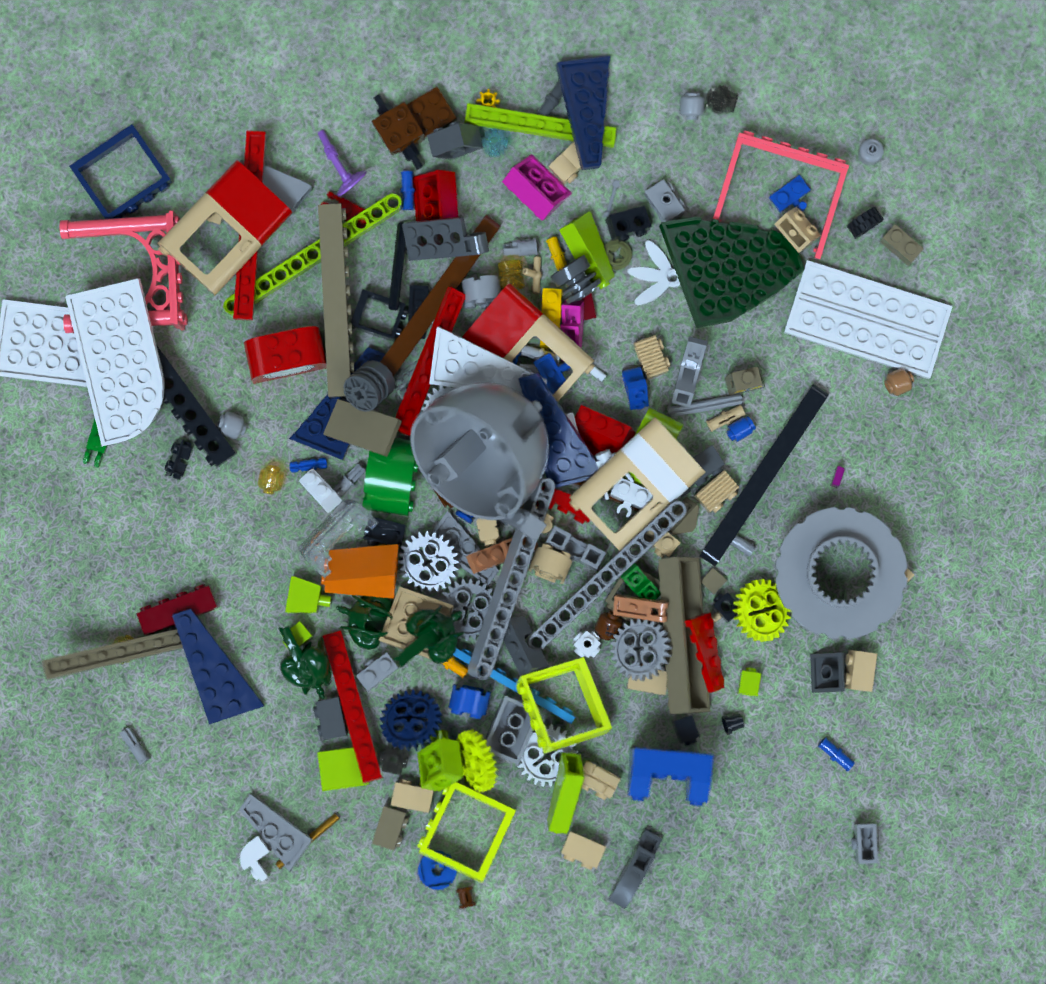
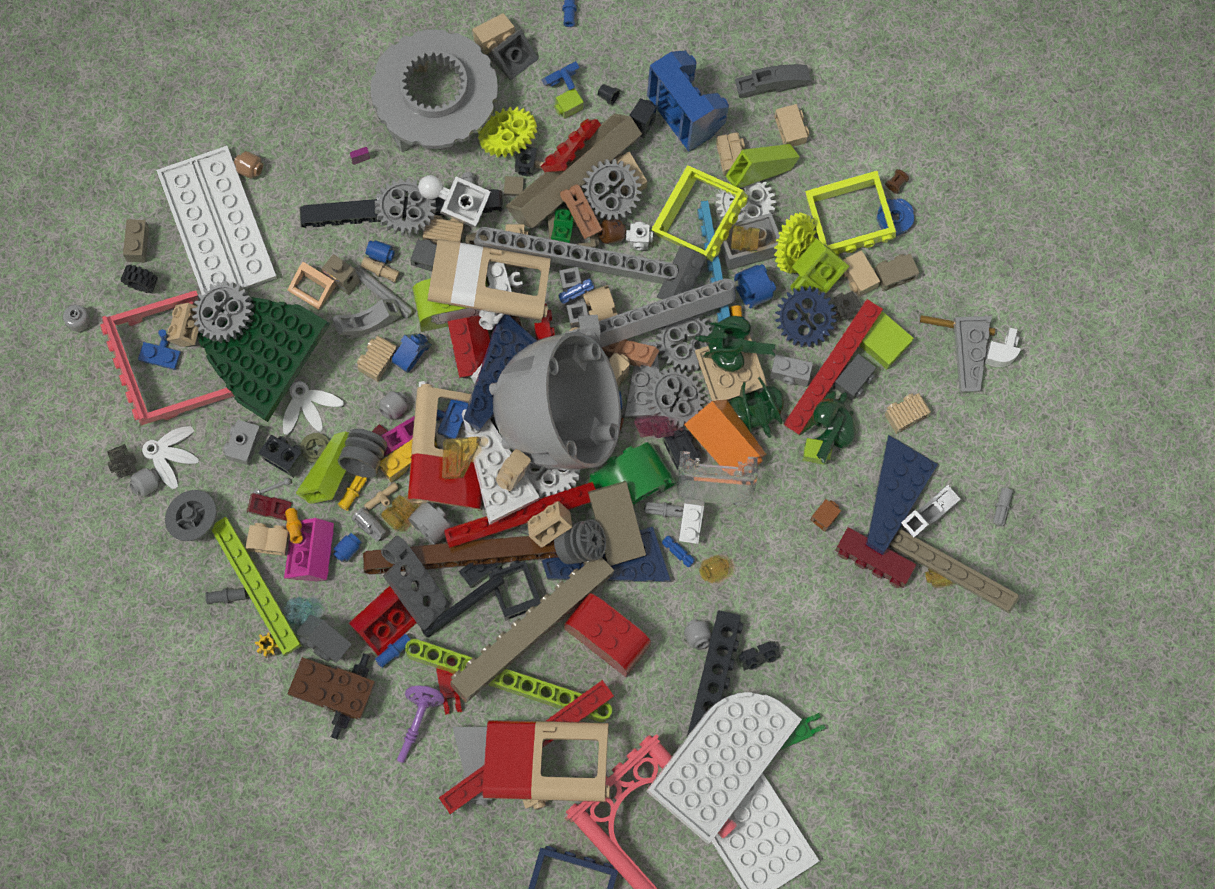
camera: 130 degrees left, 10 degrees down
(176, 680) = (931, 512): none -> light grey arch
(241, 601) = (825, 514): none -> dark orange brick
(268, 735) = (907, 412): none -> tan brick
(305, 597) = (781, 469): lime torso -> none
(400, 371) = (549, 524): none -> tan brick
(420, 524) = (654, 425): none -> clear pink slope
(461, 372) = (513, 470): none -> tan brick
(509, 719) = (745, 238): none -> clear yellow wheel
(511, 346) = (458, 456): none -> clear yellow wing
(515, 217) = (347, 547): none -> blue brick
(563, 188) = (293, 525): none -> light orange pin
(577, 551) = (576, 291): none -> blue axle
(585, 99) = (205, 566): dark blue wing -> none
(597, 184) = (268, 507): none -> dark red slope
(602, 339) = (393, 405): none -> light grey head
(634, 117) = (191, 515): none -> dark grey wheel
(706, 137) = (163, 451): none -> white plant
(735, 525) = (431, 188): none -> white brick
(758, 362) = (317, 277): none -> light nougat tile
(764, 264) = (235, 320): none -> light grey gear
(770, 460) = (387, 205): none -> light grey gear
(780, 696) = (565, 72): none -> blue plate

